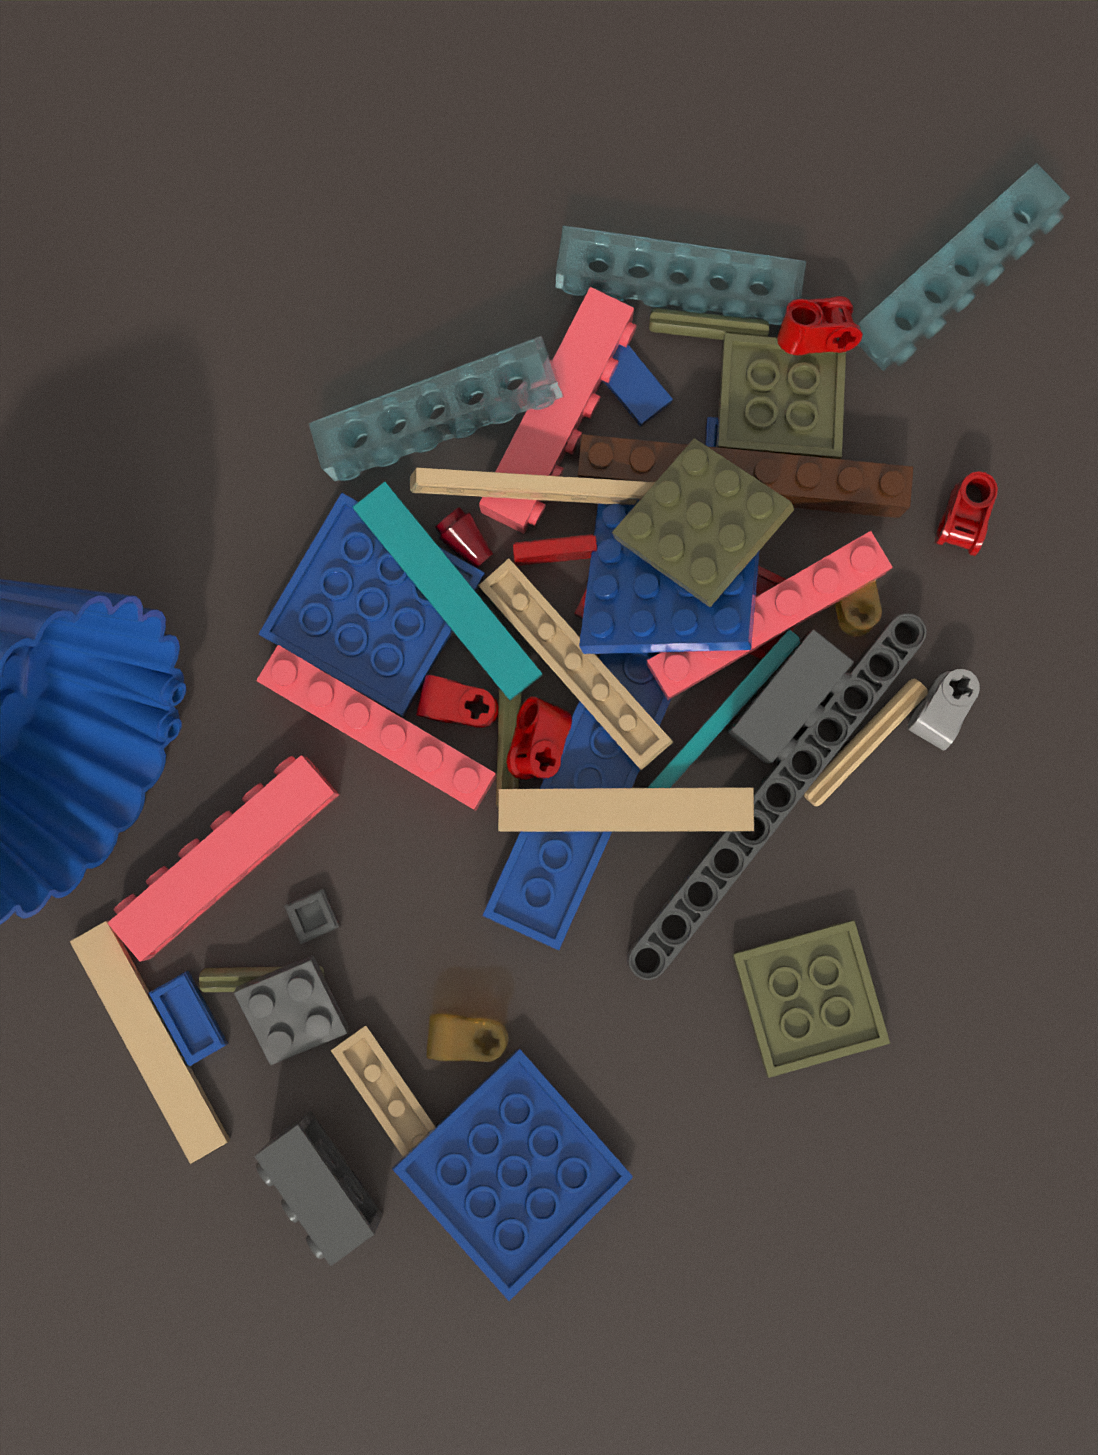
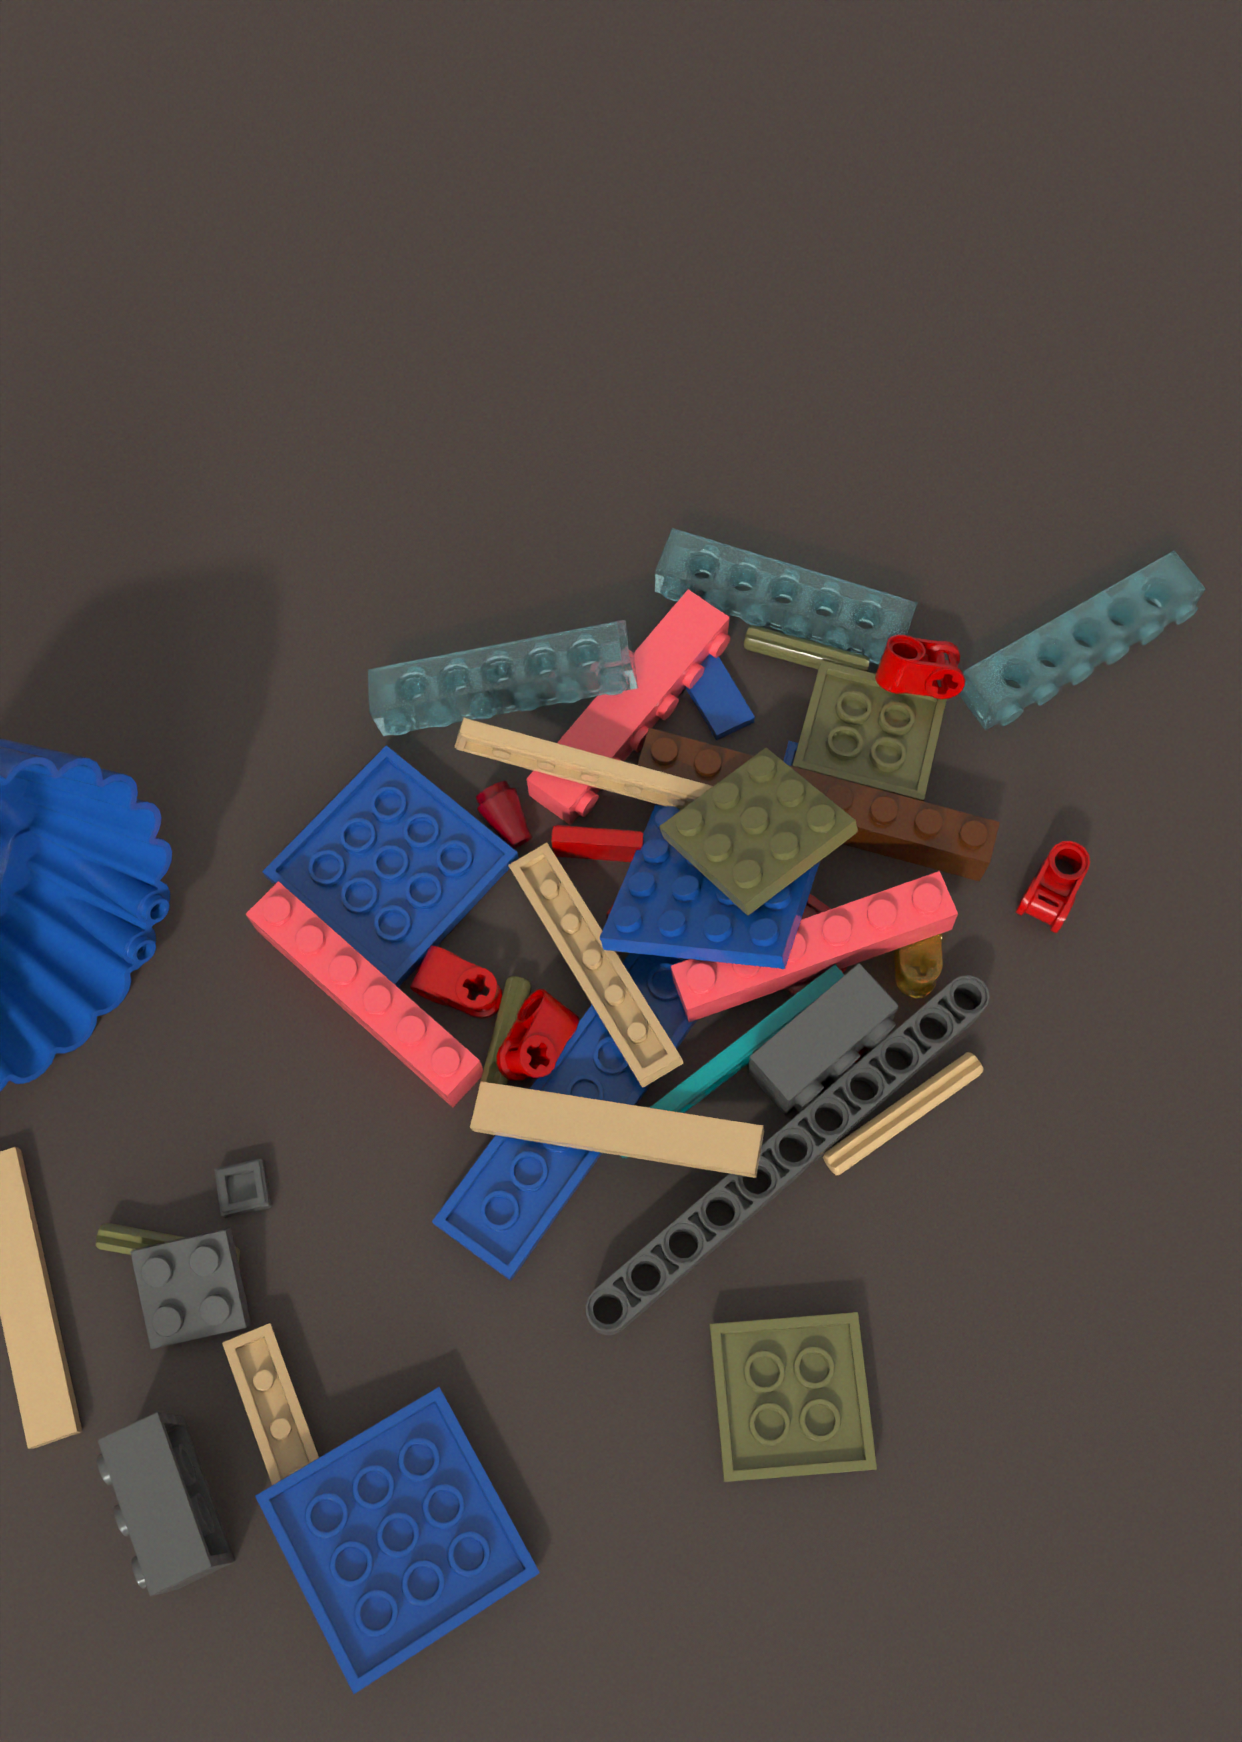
camera: 15 degrees right, 15 degrees down
(188, 1018) = (74, 1277): blue tile -> none
(222, 858) = (159, 1102): coral brick -> none
(447, 591) = (474, 865): teal tile -> none
(457, 1037) = (373, 1360): clear yellow piece -> none
(940, 713) = (995, 1094): light grey piece -> none

